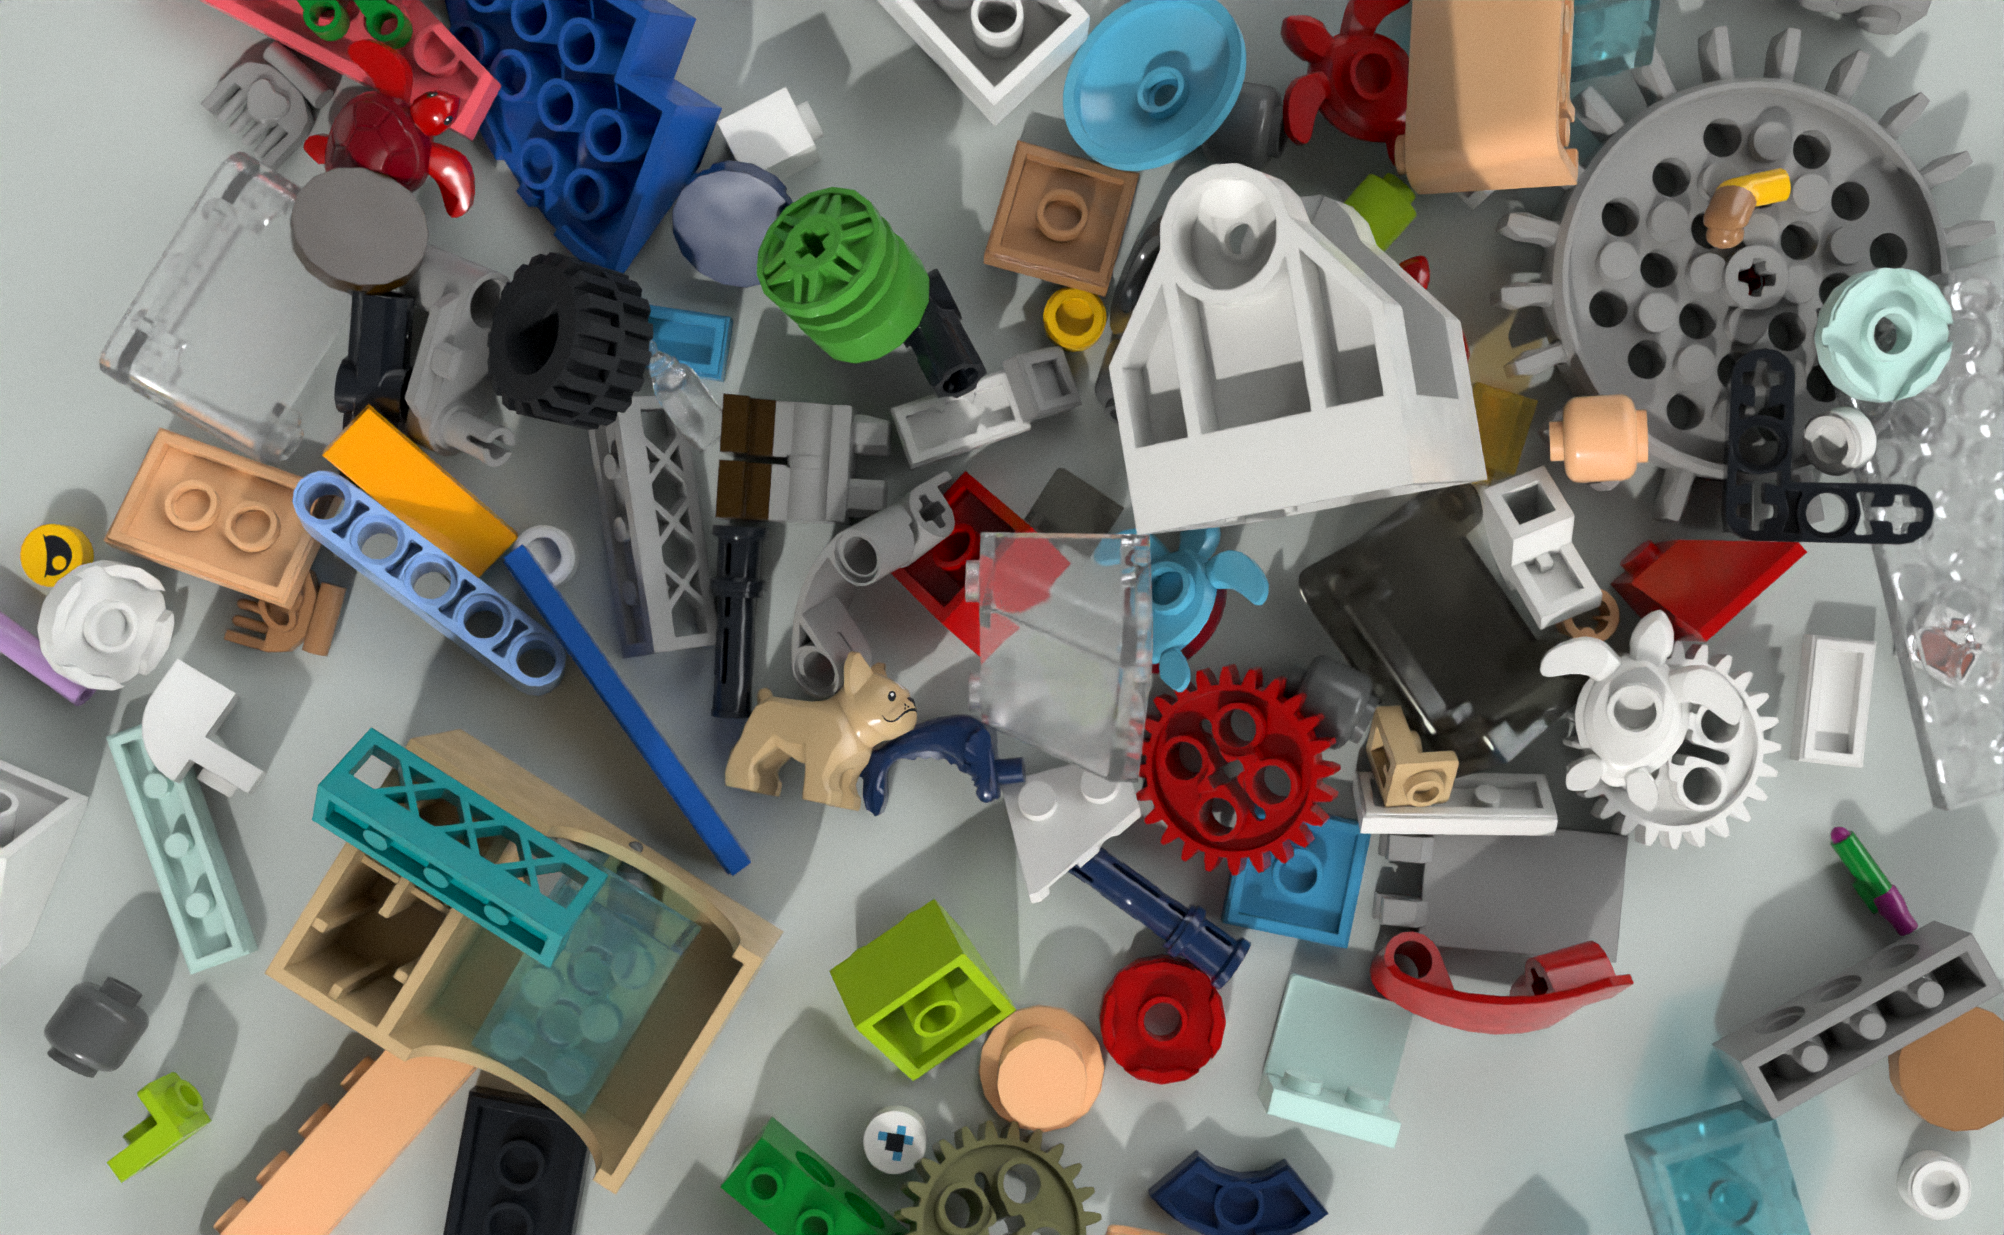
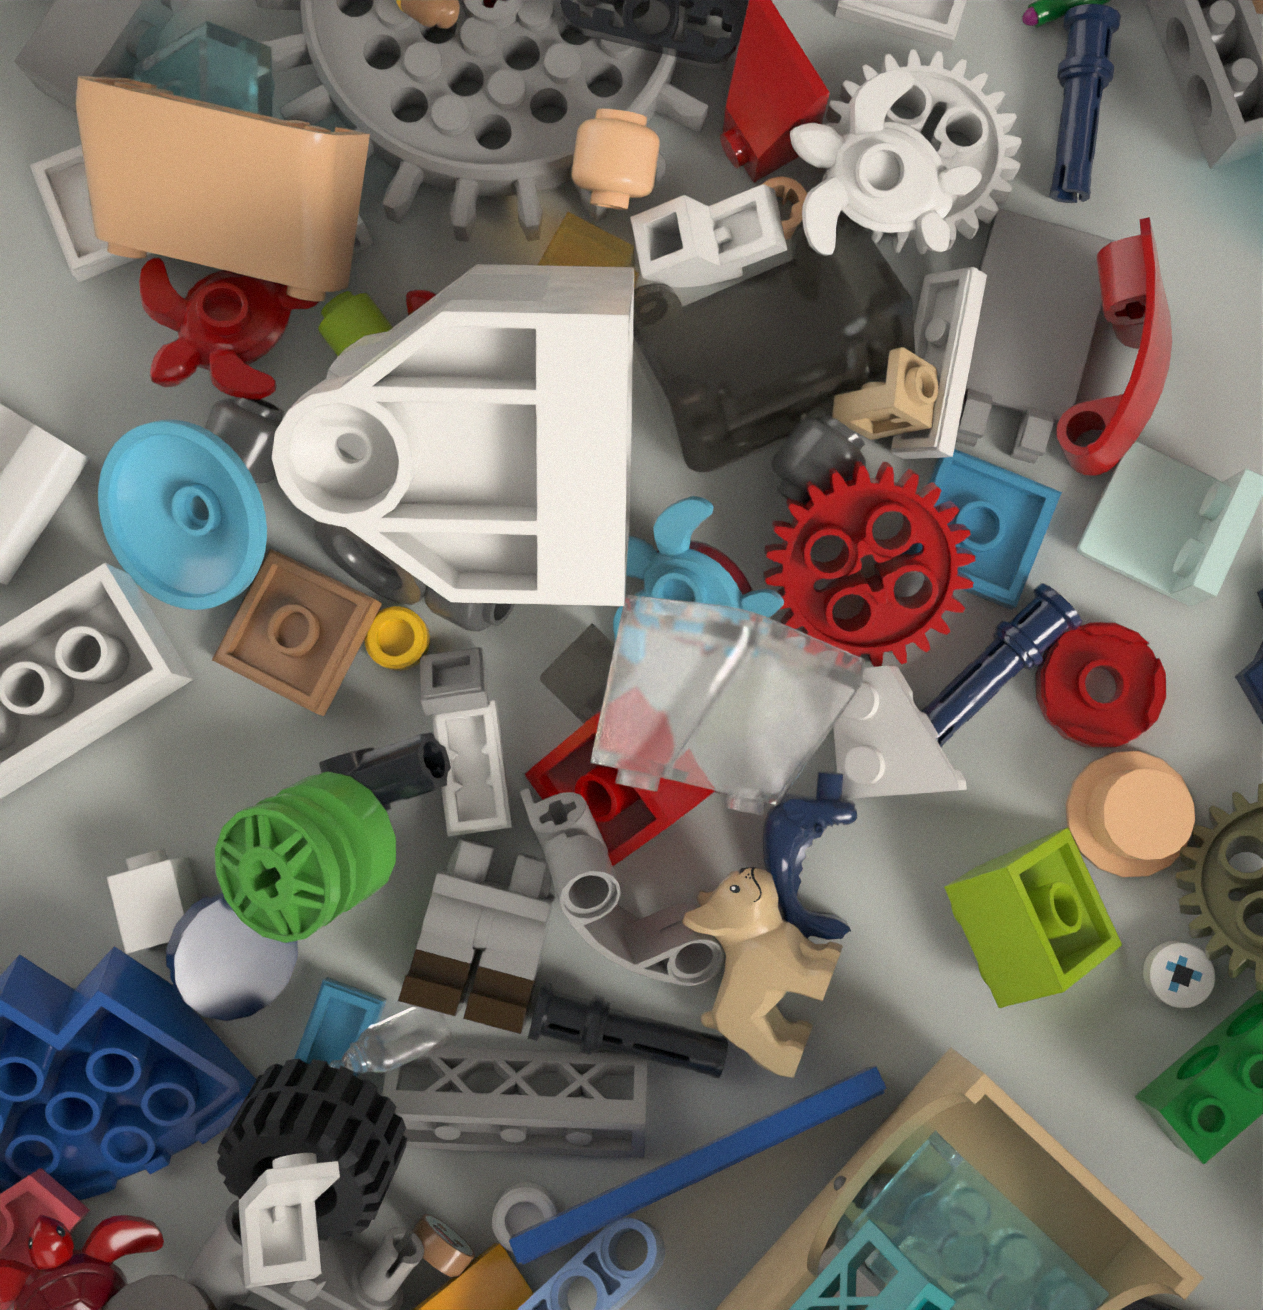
camera: 75 degrees left, 5 degrees down
(497, 327) = (281, 1221): none -> white bracket
(505, 483) = (443, 1246): none -> medium nougat tile
(1783, 900) = (1083, 77): none -> dark blue pin

